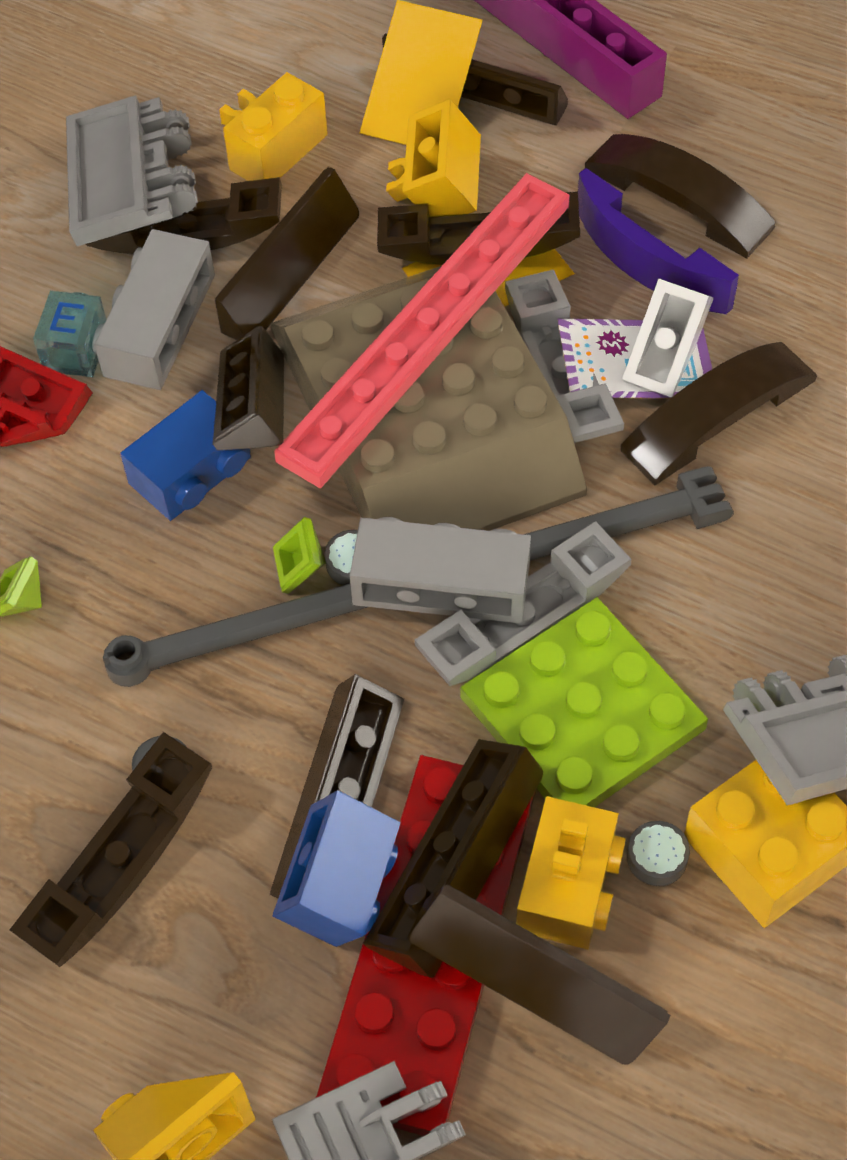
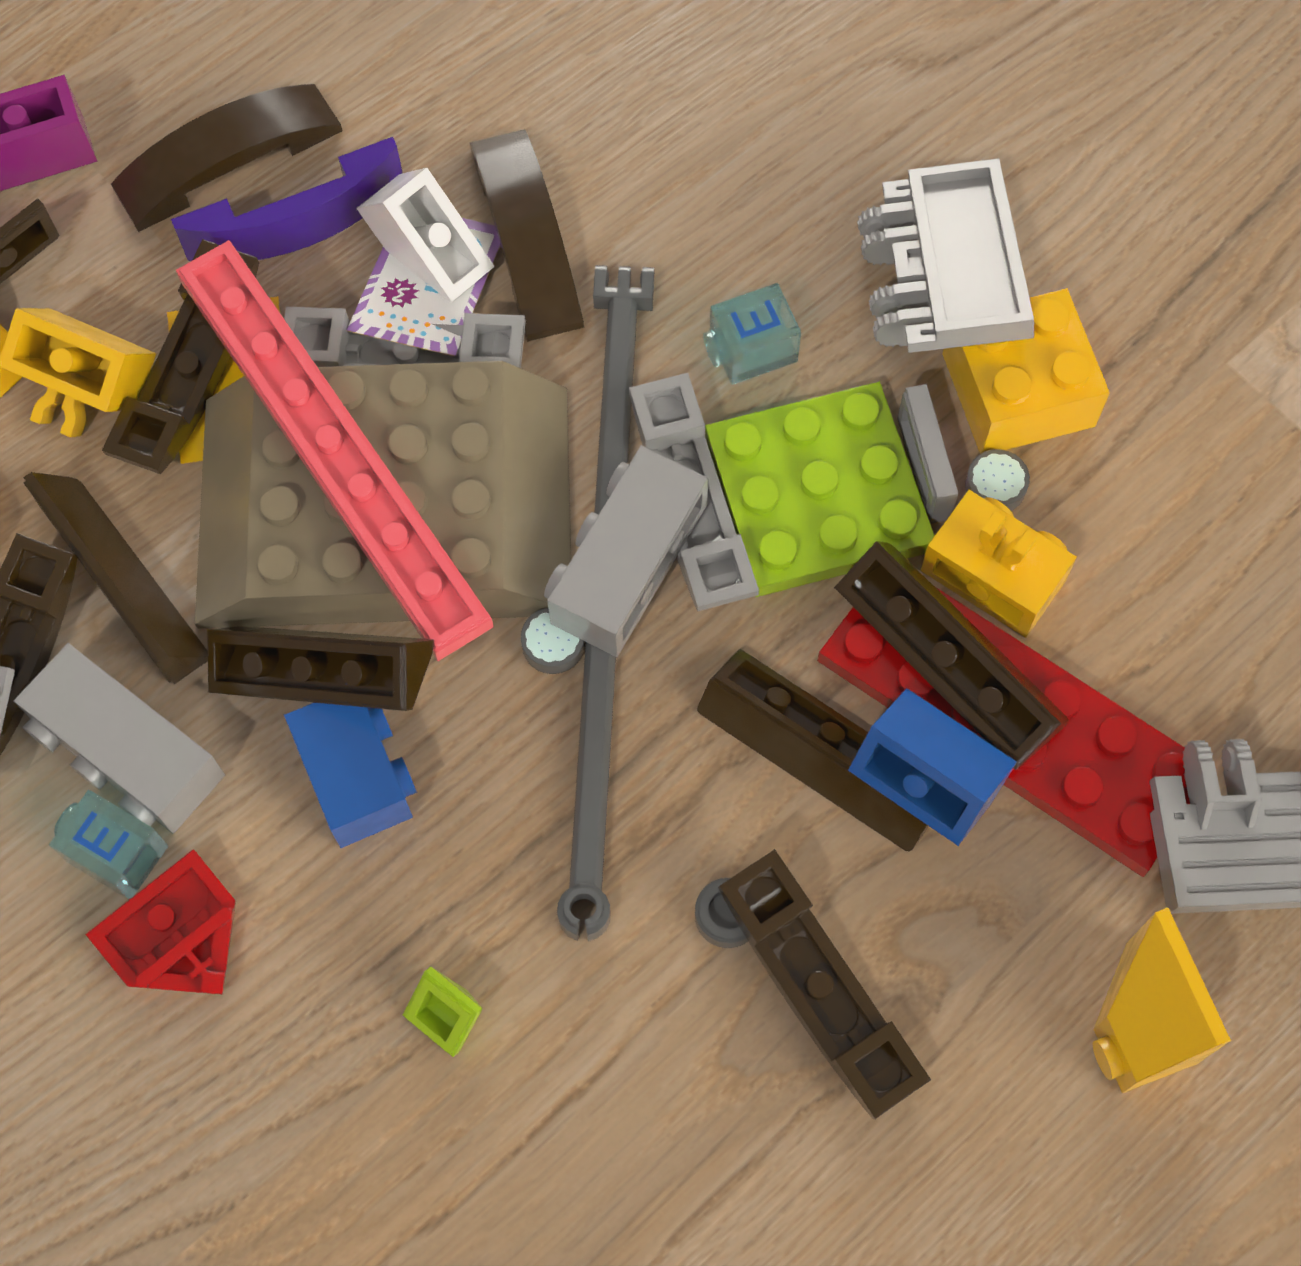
camera: 70 degrees left, 10 degrees up
(298, 555) = (532, 693): lime slope -> none
(536, 975) = (1106, 625): dark brown slope -> none
(654, 775) = (927, 453): none -> light grey tile
(701, 601) = (752, 334): none -> clear light blue brick

